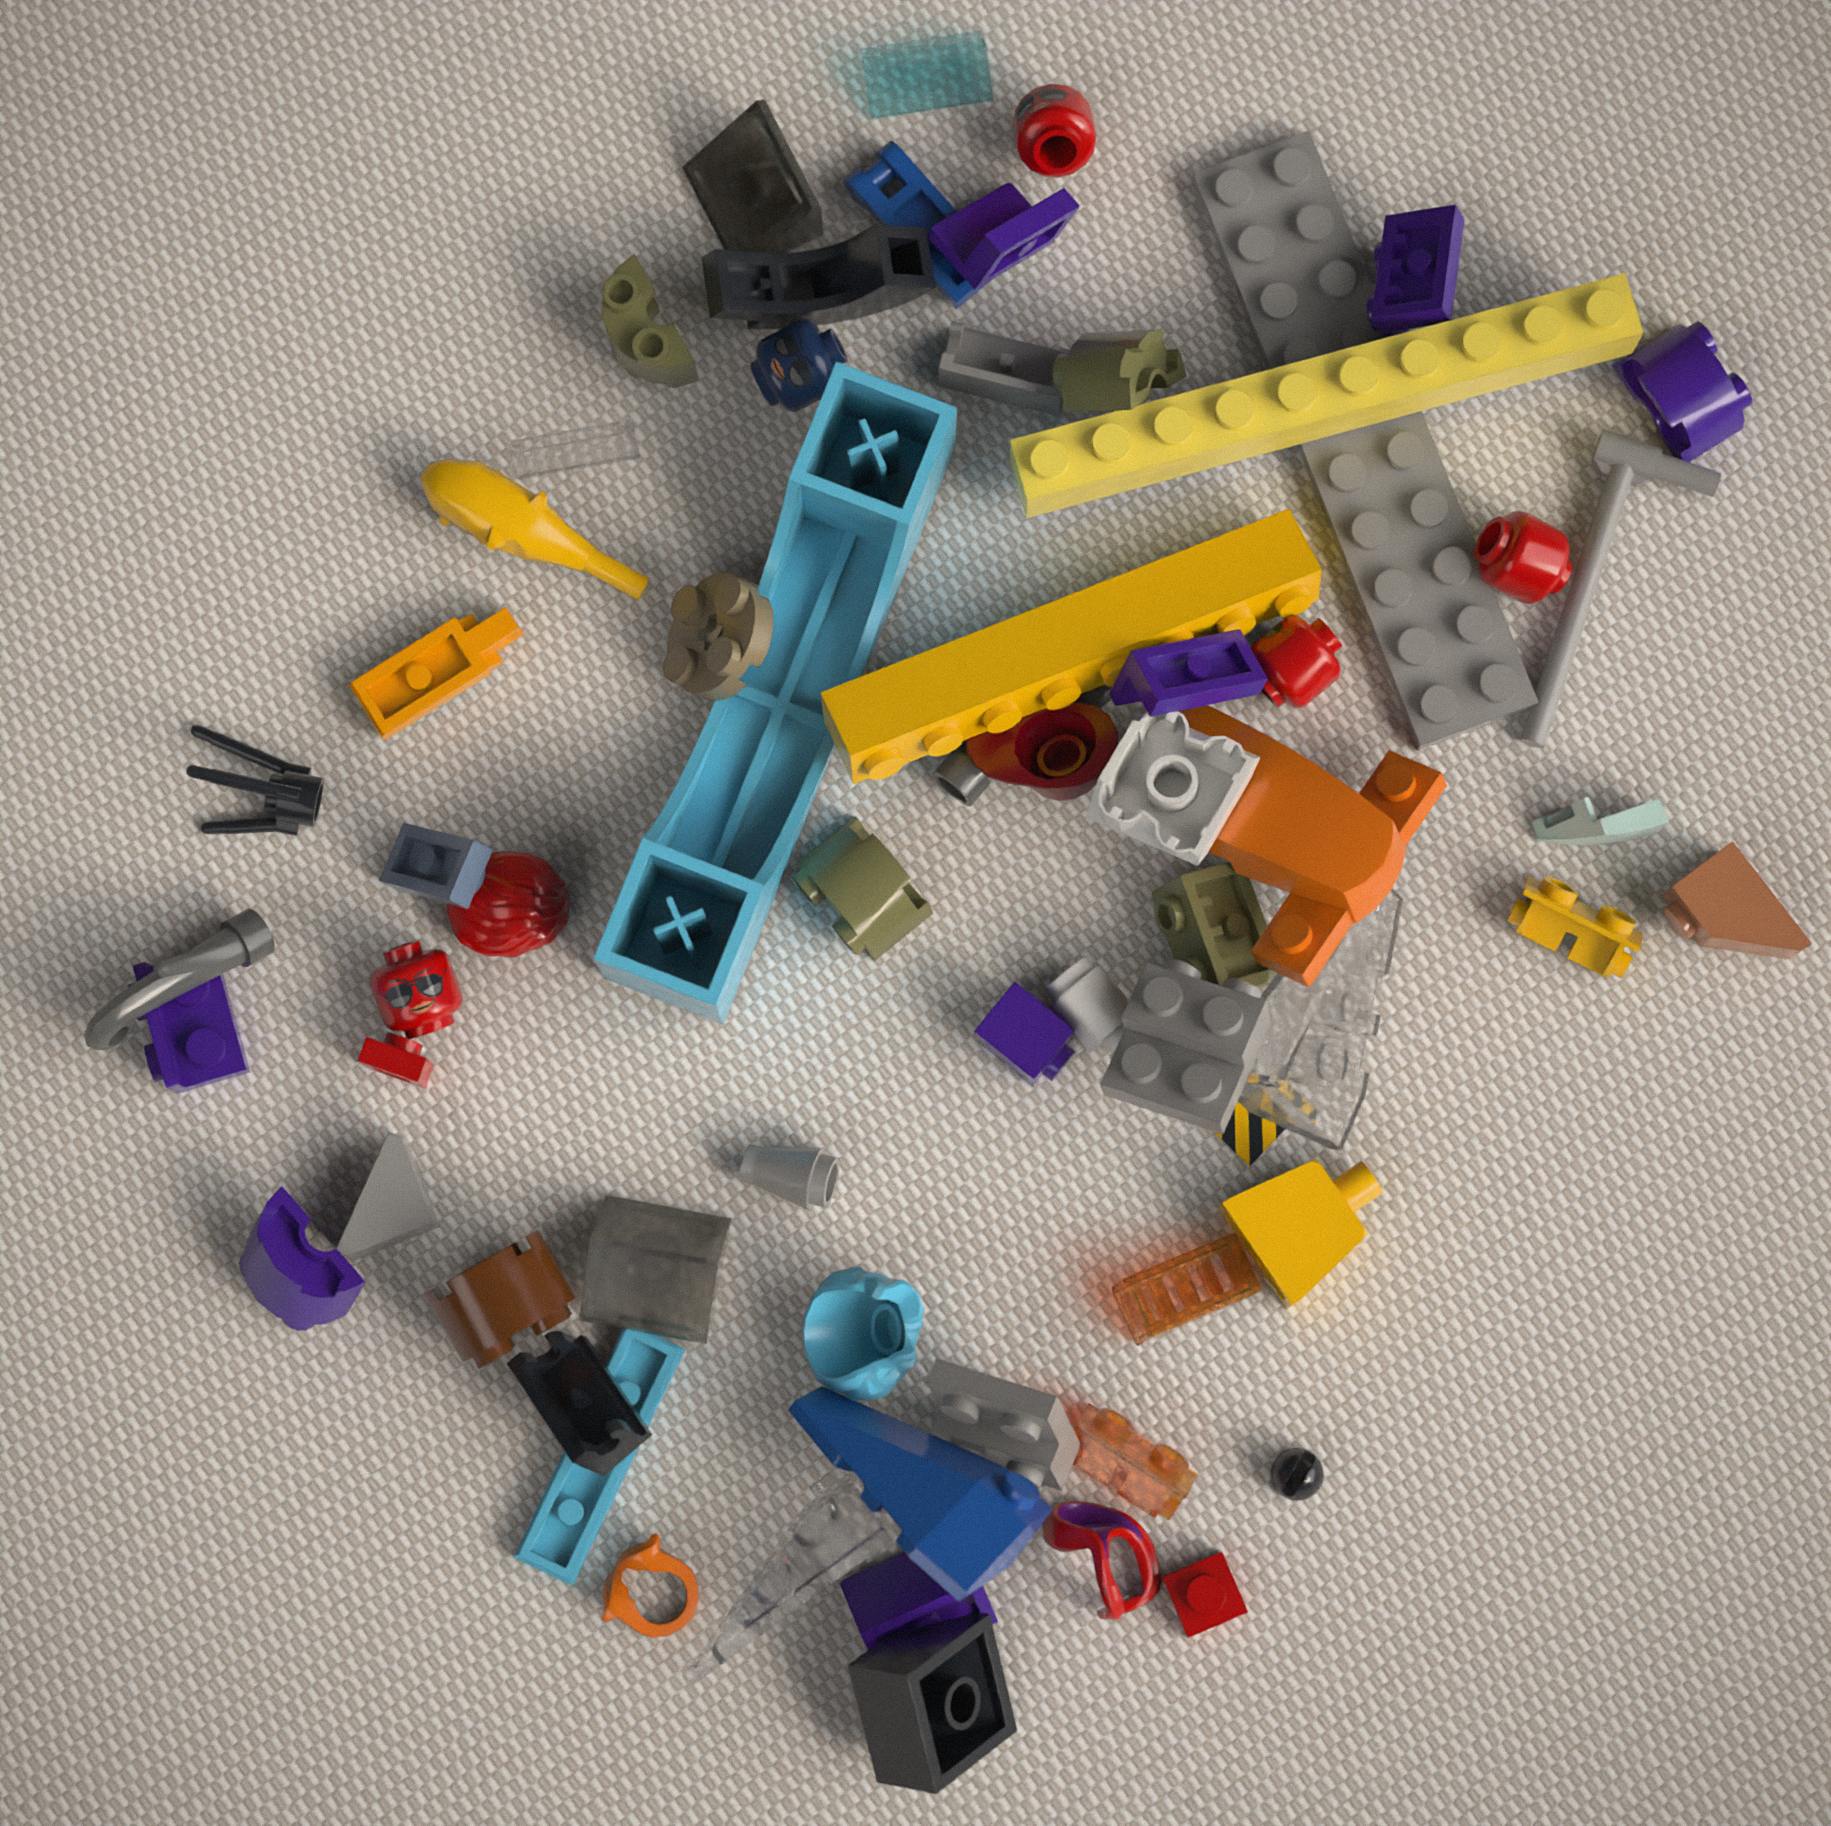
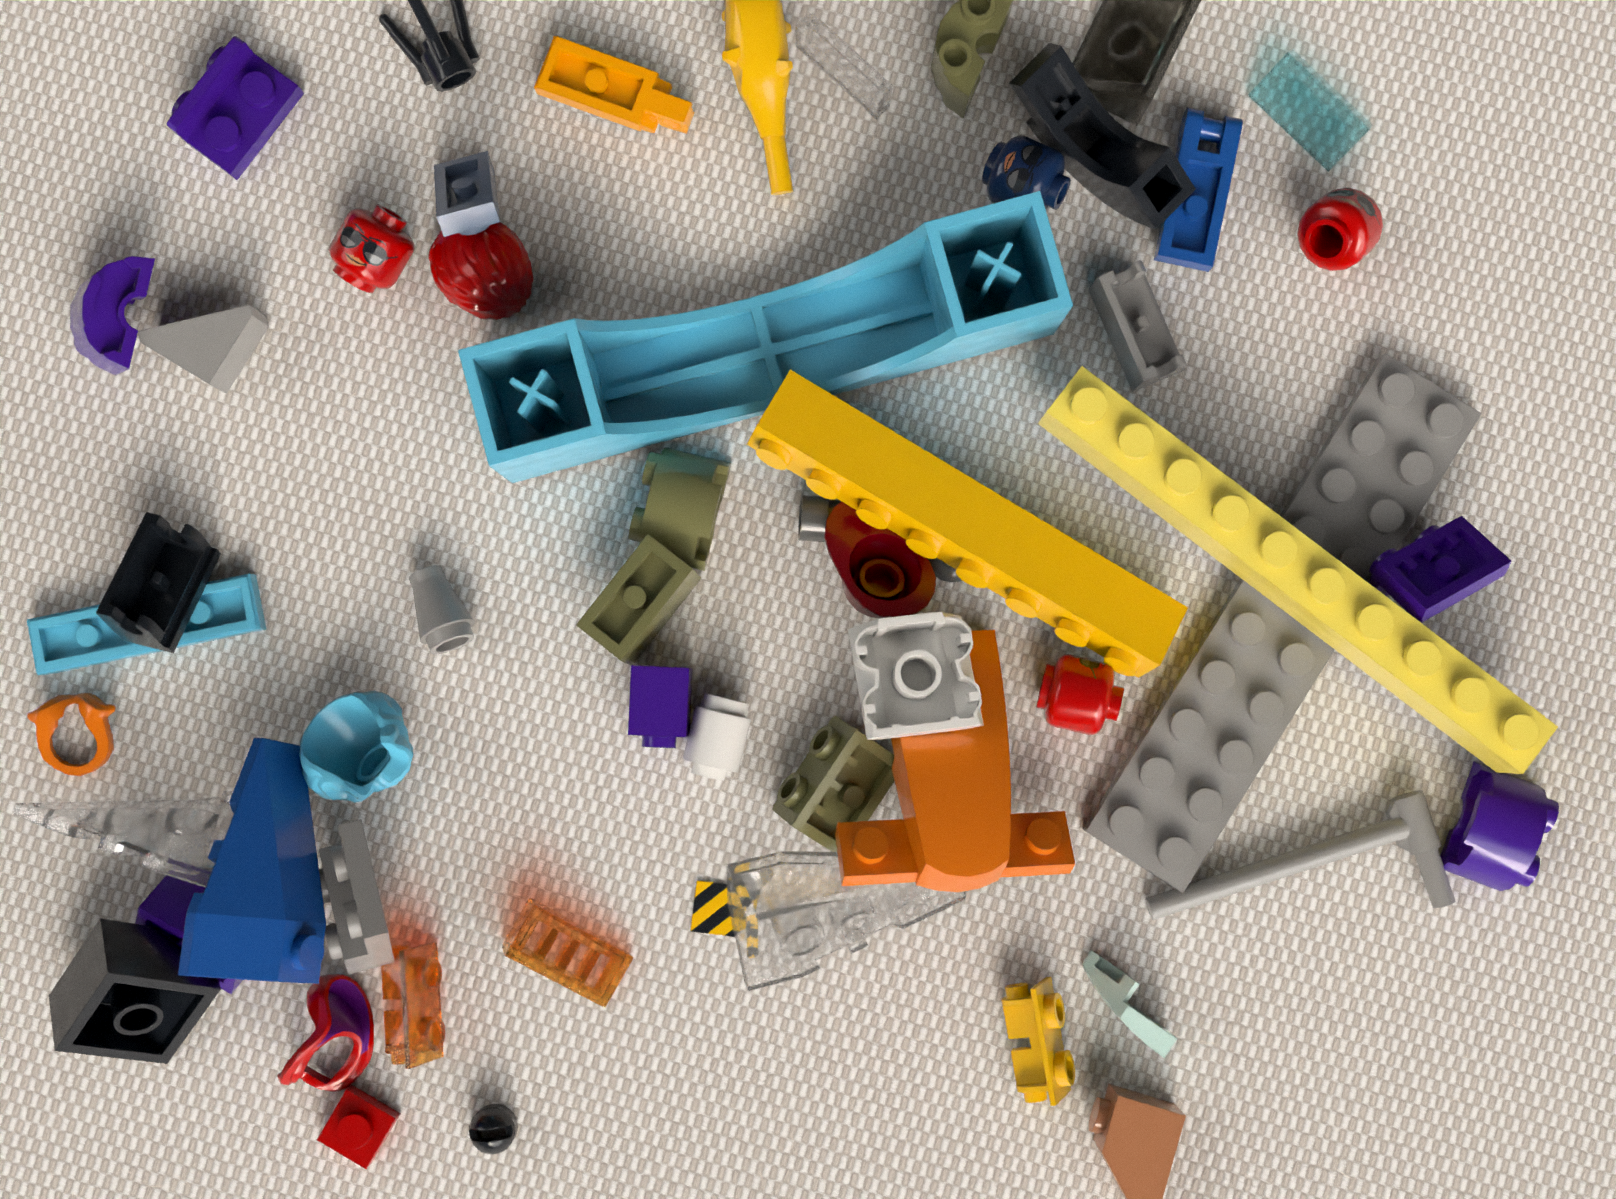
camera: 50 degrees right, 5 degrees up
(241, 942) = (312, 99): dark grey plant -> none
(397, 1058) = (312, 273): red plate -> none
(502, 1299) = (190, 474): reddish brown brick -> none
(654, 1269) = (300, 563): clear smoke slope -> none
(695, 653) = (782, 266): dark tan plate -> none
(918, 982) = (639, 600): none -> olive panel
(1000, 232) = (1234, 247): dark purple panel -> none
(1115, 370) = (1194, 404): olive cylinder -> none
(1187, 1045) = (732, 829): light grey plate -> none
(1189, 674) = (1008, 627): dark purple panel -> none
(1301, 1224) = (671, 1003): yellow torso -> none
(1523, 557) = (1282, 803): red head -> none

